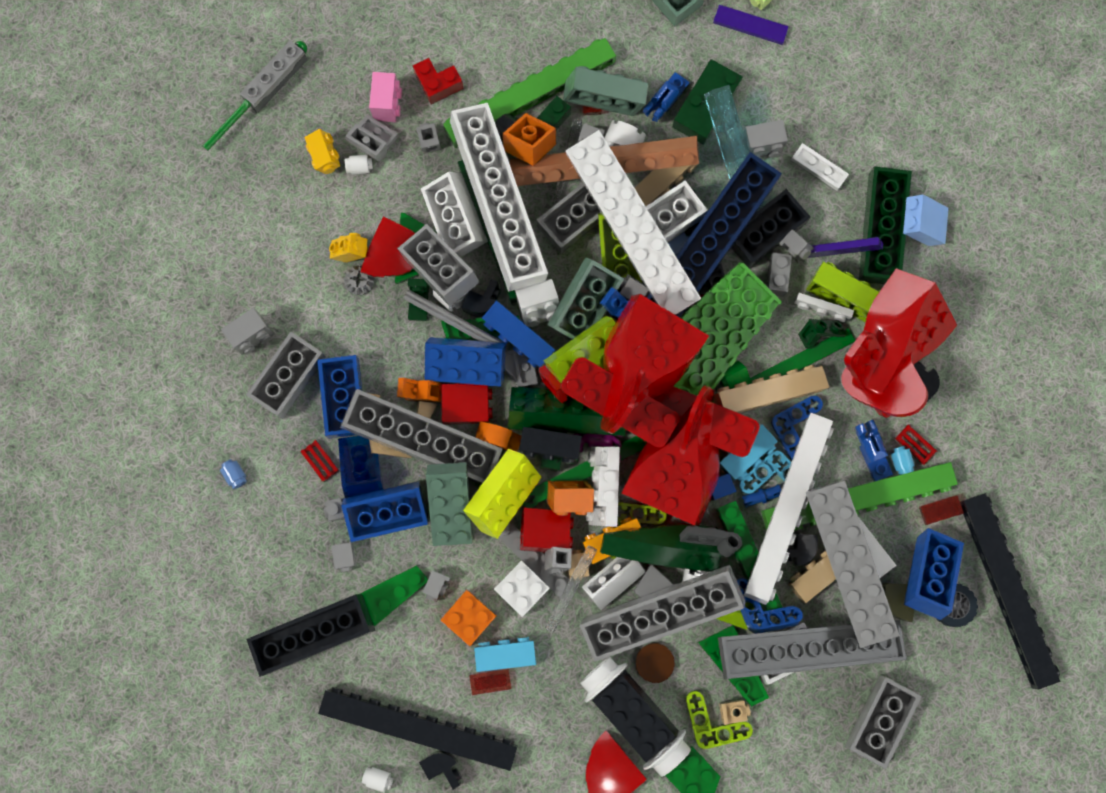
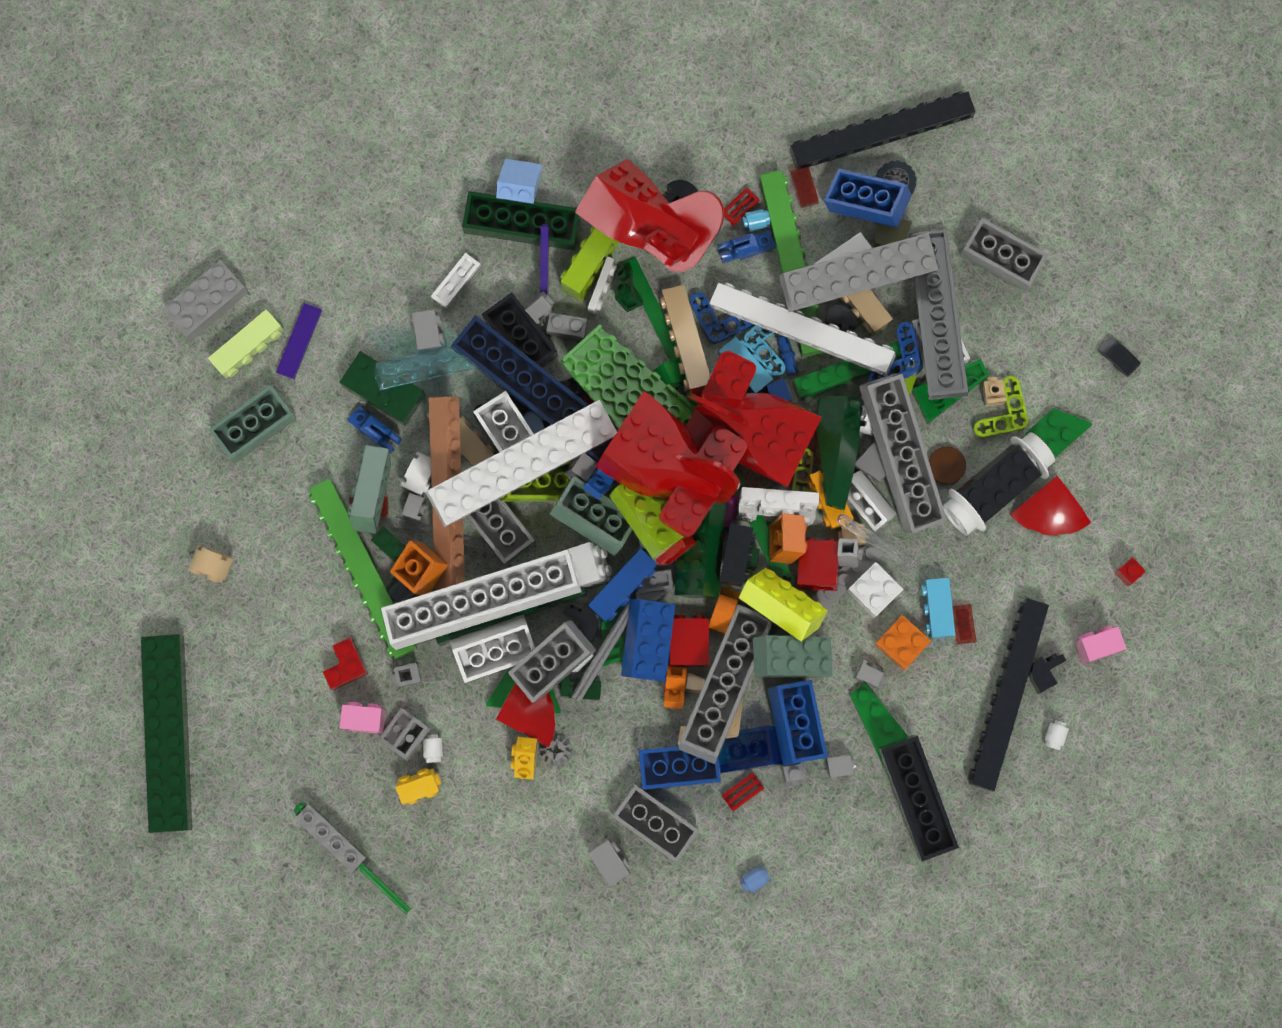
camera: 85 degrees left, 0 degrees up
(725, 541) = (835, 389): dark grey plate -> none

